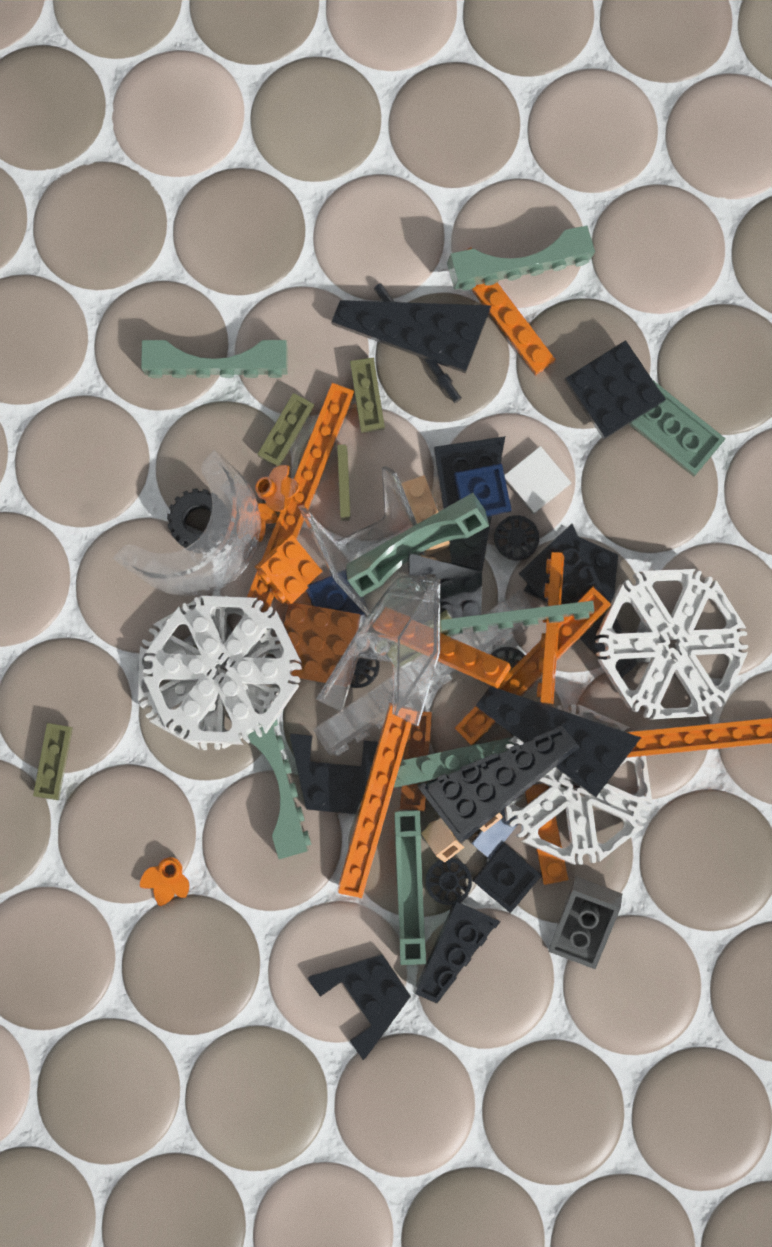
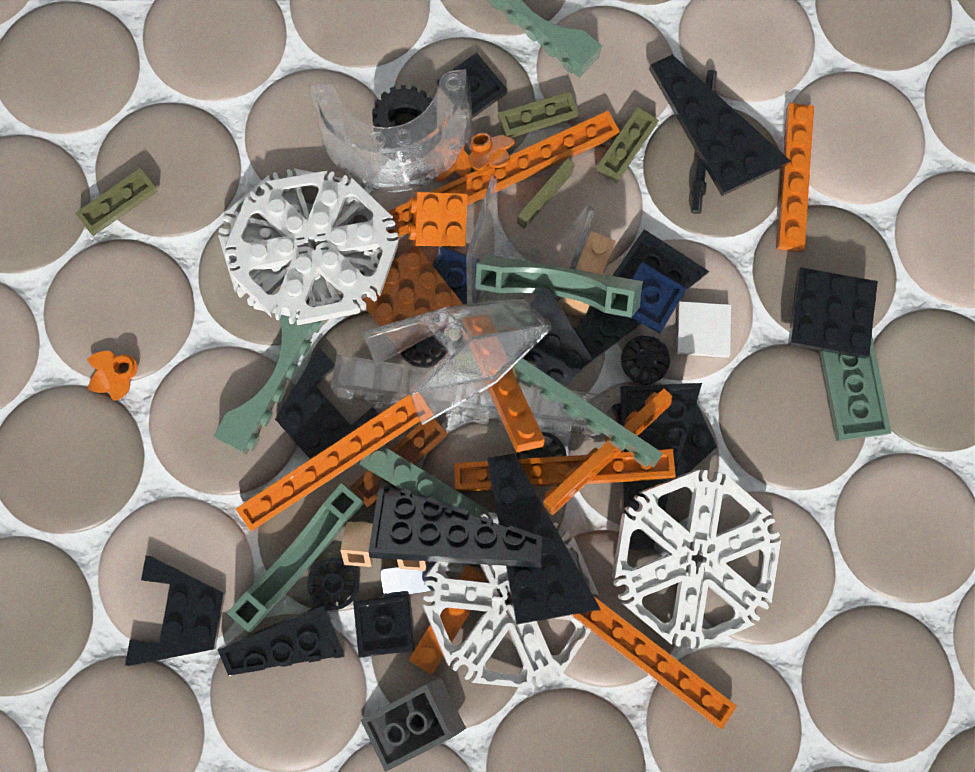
camera: 30 degrees right, 5 degrees down
(224, 440) = (484, 84): none -> black tile
(475, 268) = (804, 121): sand green arch -> none

